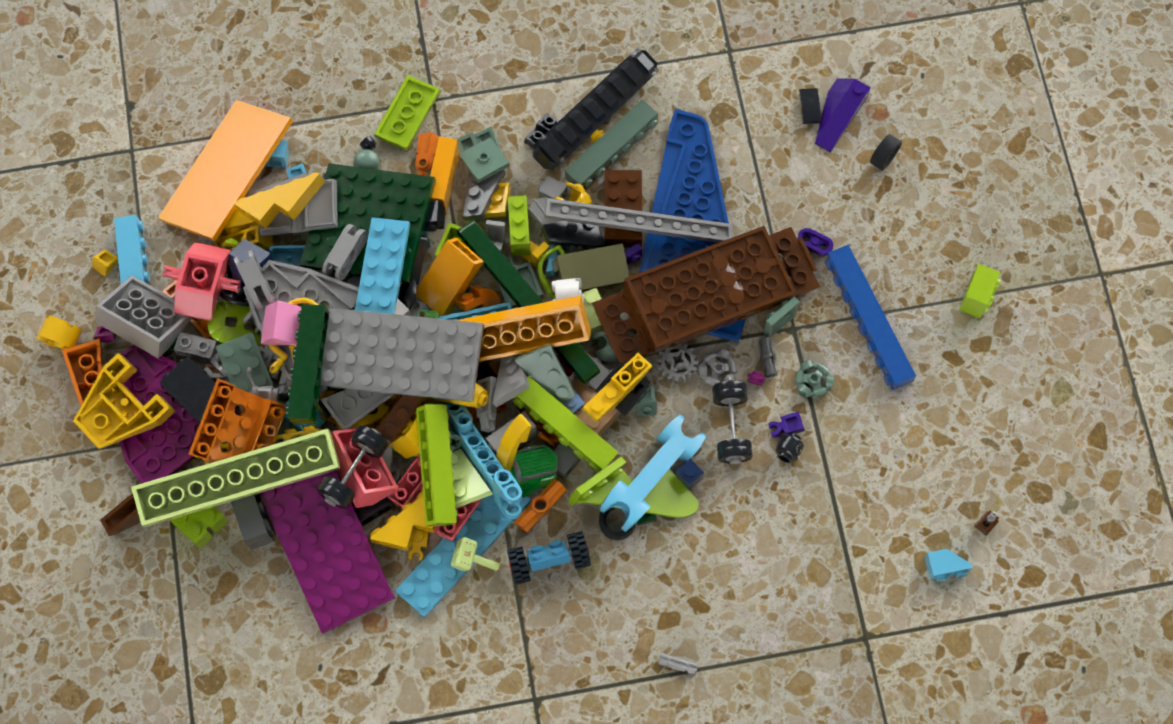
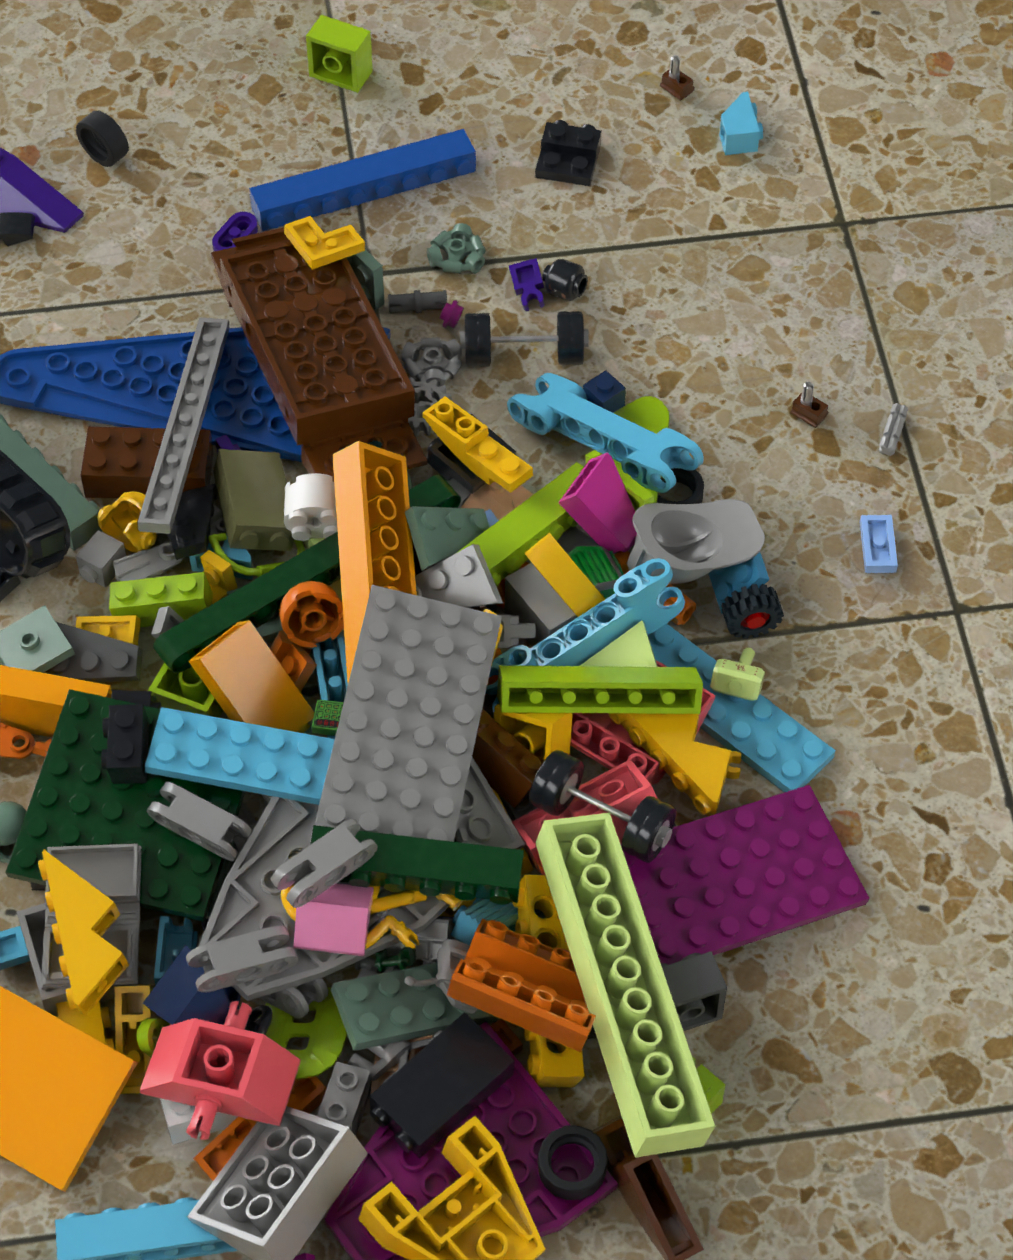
camera: 90 degrees left, 15 degrees down
(148, 451) = (572, 1135): none -> black tyre
(271, 359) = (405, 958): none -> dark green piece
(294, 310) = (323, 863): none -> light grey piece
(391, 207) = (127, 743): none -> black brick
(493, 298) = (311, 613): none -> orange cylinder
(557, 523) = (695, 537): none -> light grey piece
(580, 465) = (602, 504): none -> dark pink slope
(580, 649) = (878, 544): none -> light blue plate
(693, 604) = (808, 407): none -> reddish brown piece
(773, 284) = (320, 247): none -> yellow plate
(909, 449) = (568, 153): none -> black plate

